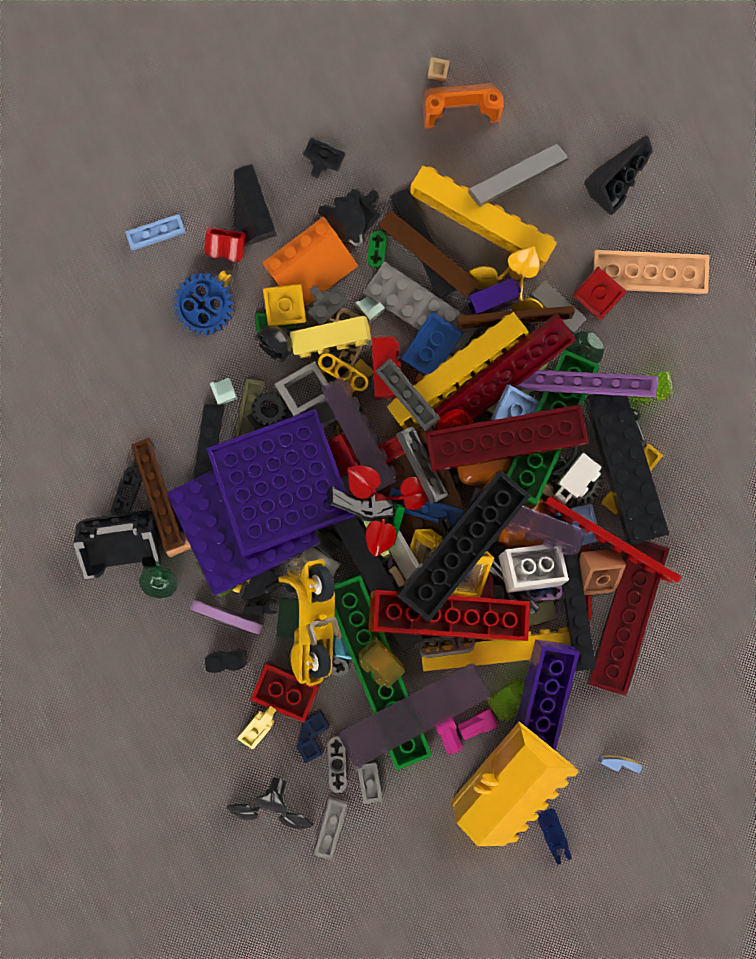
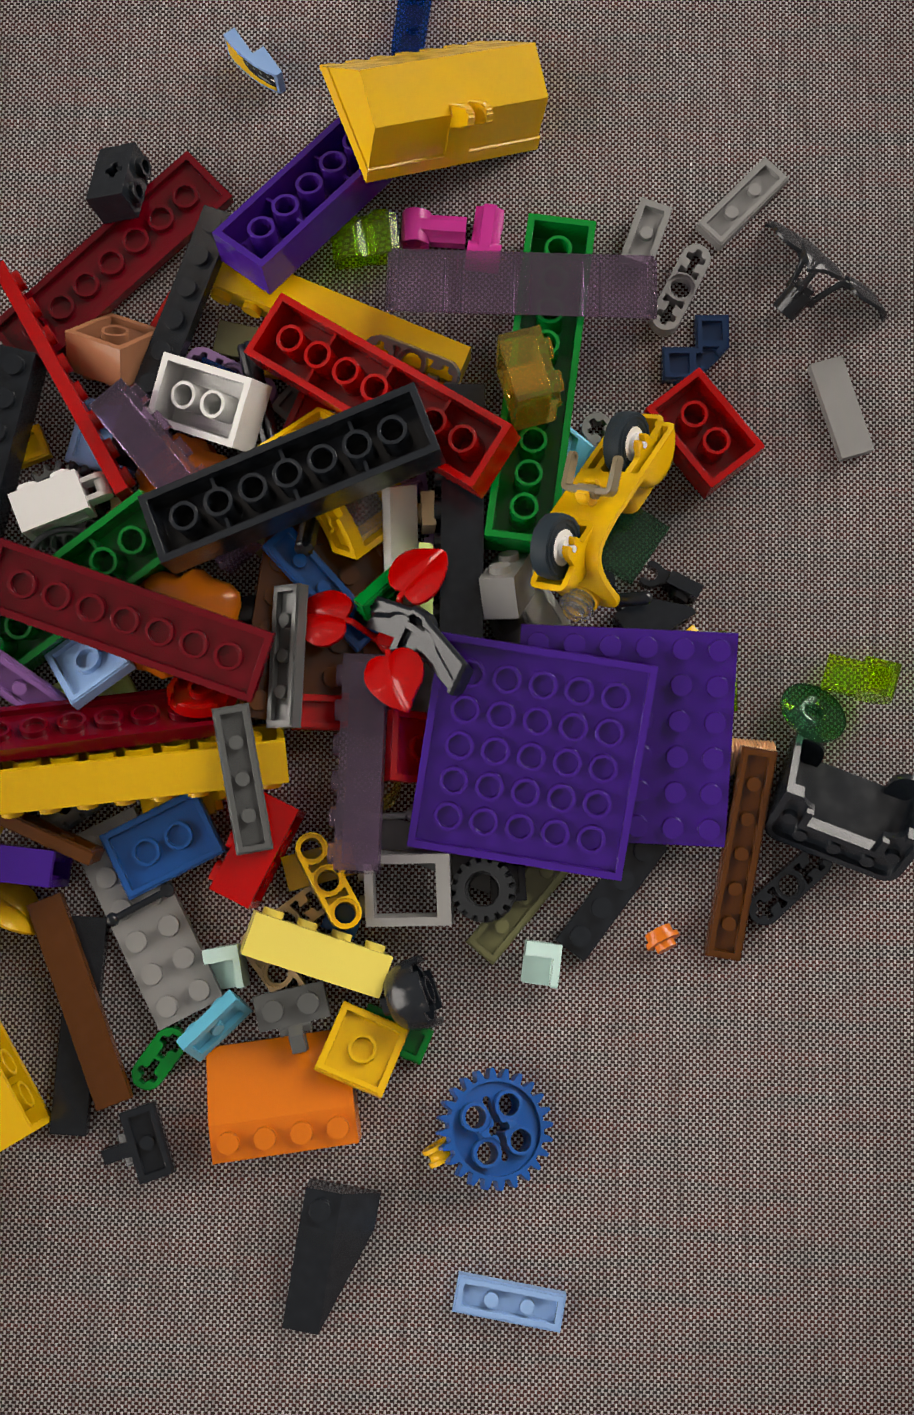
camera: 155 degrees left, 5 degrees down
(144, 611) = (866, 680): none -> clear neon green brick
(173, 434) = (662, 938): none -> orange plate
(224, 746) = (840, 408): none -> light grey tile
(225, 244) = (403, 1212): red brick -> none
(226, 616) = (732, 600): lavender beam -> none
(232, 661) = (776, 535): black brick -> none
(257, 728) = (775, 402): light yellow hinge -> none
(323, 157) = (157, 1269): black hinge -> none
(337, 558) = (506, 585): none -> light grey brick
(347, 217) = (175, 1140): black tile -> none
(359, 277) = (214, 1025): none -> medium azure plate
(417, 326) = (166, 890): none -> black hinge
(647, 658) = (119, 183): none -> black brick

